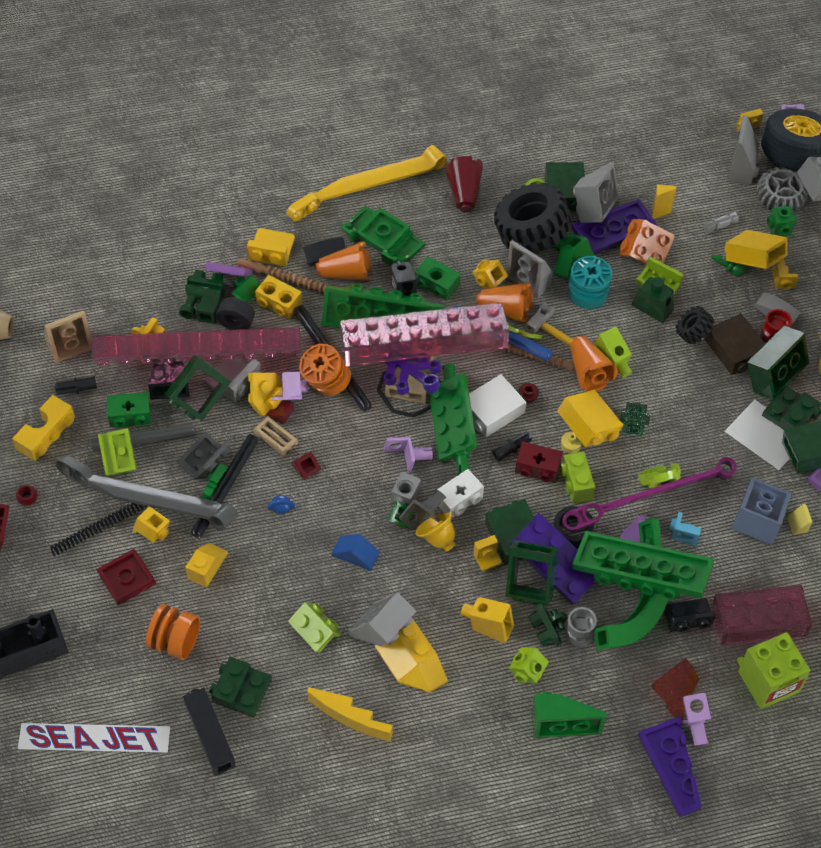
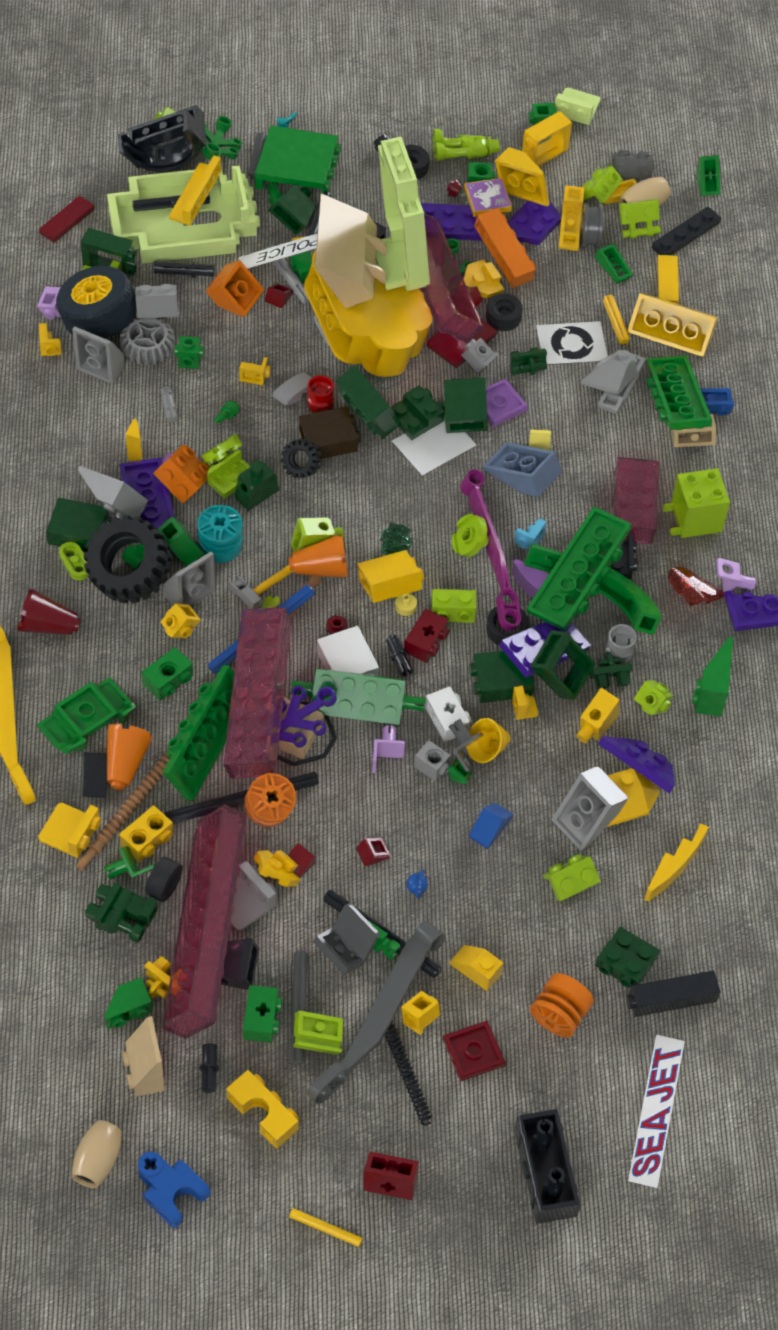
camera: 80 degrees left, 0 degrees up
(26, 490) = (347, 1134): dark red plate -> none
(120, 316) = (128, 1003): none -> green slope
(195, 363) = (255, 934): dark green window -> none
(229, 269) = (97, 874): medium lavender tile -> none
(286, 446) = (308, 877): tan tile -> none
(292, 386) = (283, 839): lavender bracket -> none
(403, 275) = (166, 703): black torso -> none
(451, 663) = (642, 759): none -> dark purple wing
(514, 298) = (221, 613): orange cone -> none
(674, 260) = (221, 450): none -> lime plate
(756, 249) = (225, 380): yellow brick -> none

